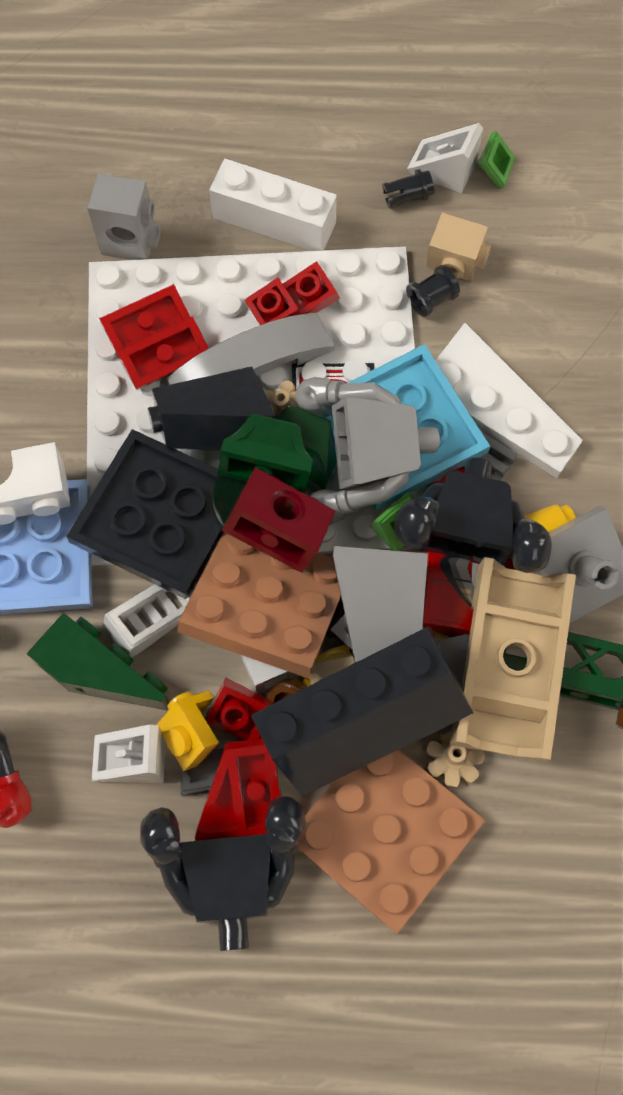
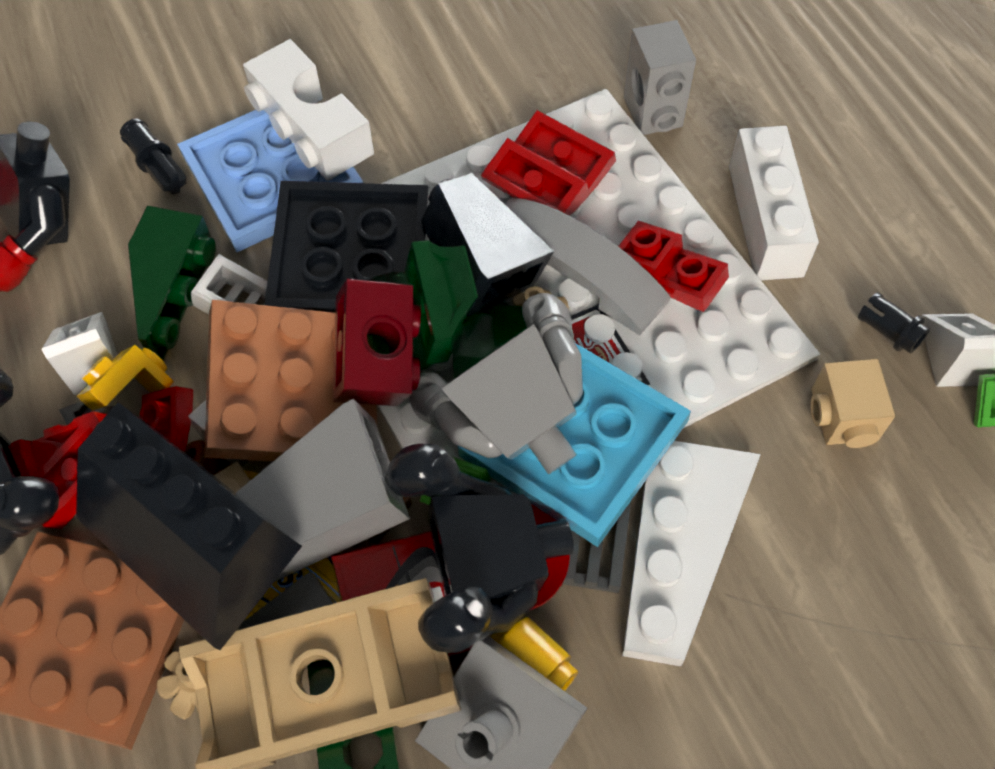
camera: 65 degrees right, 10 degrees down
(433, 290) = (778, 402): black bush -> none

